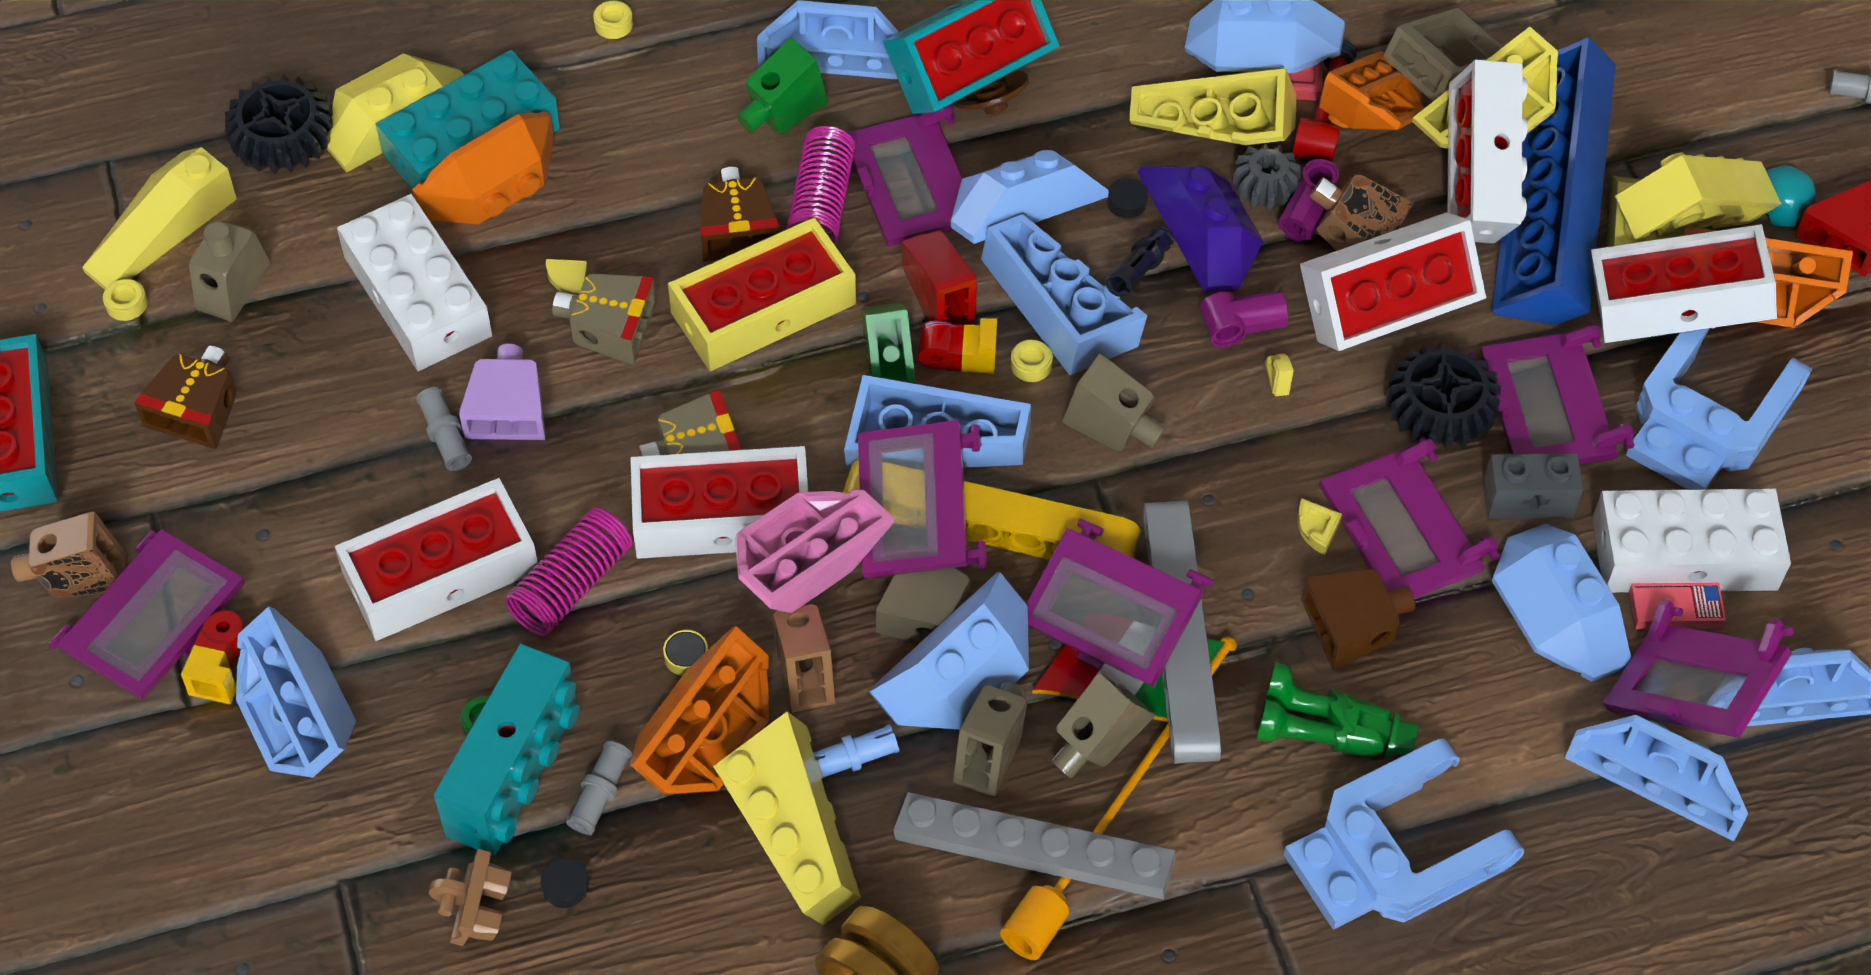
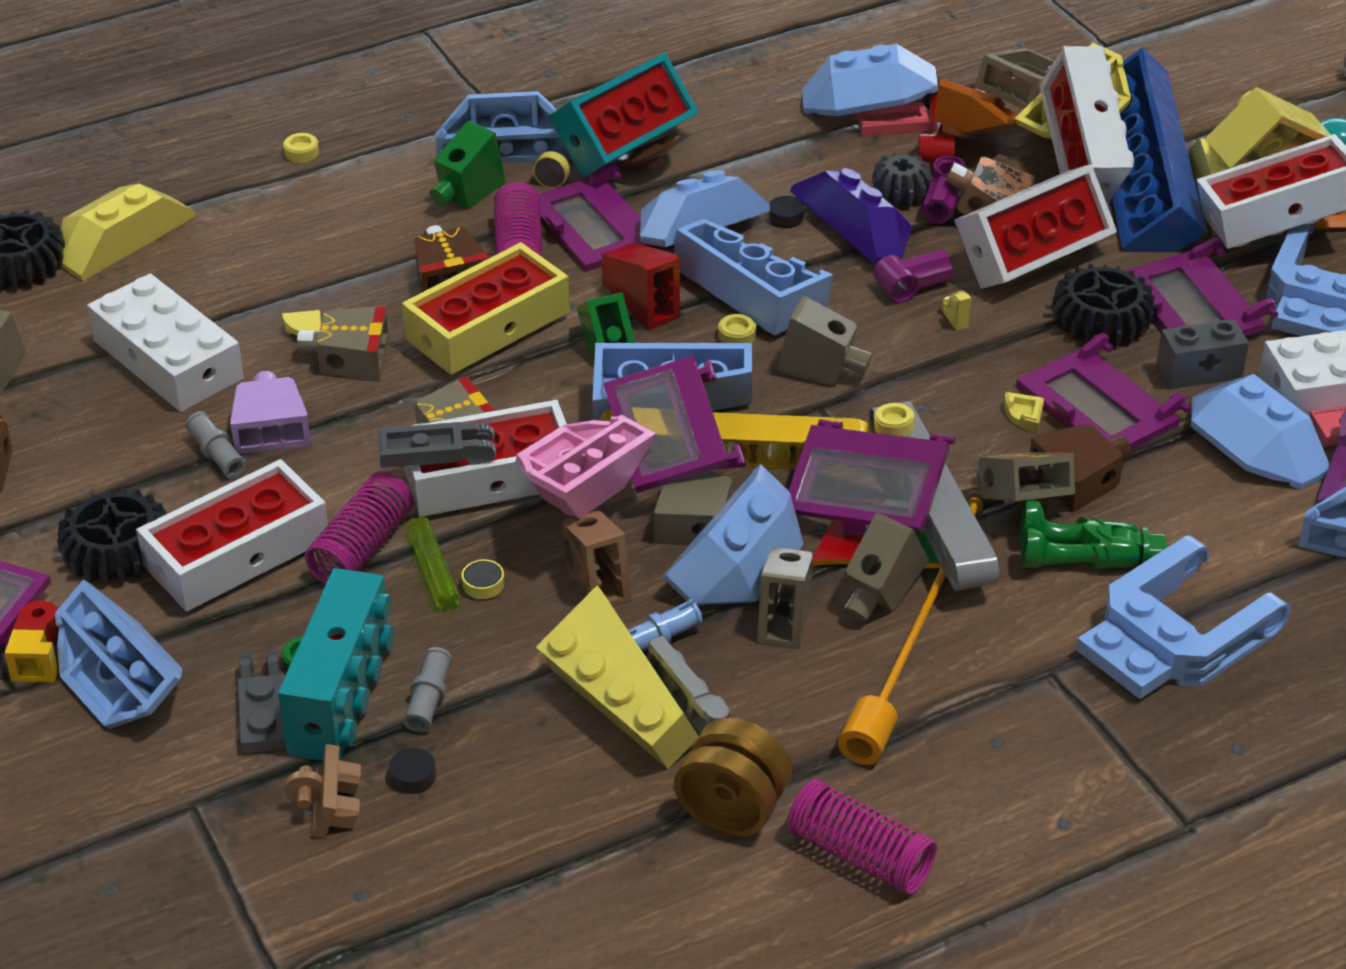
camera: 10 degrees left, 15 degrees down
(297, 523) = (101, 534): none -> black gear
(425, 770) = (259, 706): none -> dark grey hinge
(460, 112) = (190, 228): teal brick -> none
(489, 171) = (216, 253): orange wedge -> none
(638, 623) = (433, 563): none -> clear neon green axle
(659, 492) = (436, 444): none -> dark grey hinge
(705, 717) = (517, 614): orange wedge -> none
(861, 841) = (684, 686): none -> light grey hinge
(879, 99) = (551, 169): none -> tile
(958, 346) = (672, 324): leg -> none
(1035, 845) = (850, 670): light grey plate -> none
(1144, 256) = (813, 242): black pin -> none
(1161, 532) = (894, 419): none -> light yellow tile
(1222, 108) = (854, 134): light yellow wedge -> none
(1273, 633) = (1009, 476): none -> dark tan torso

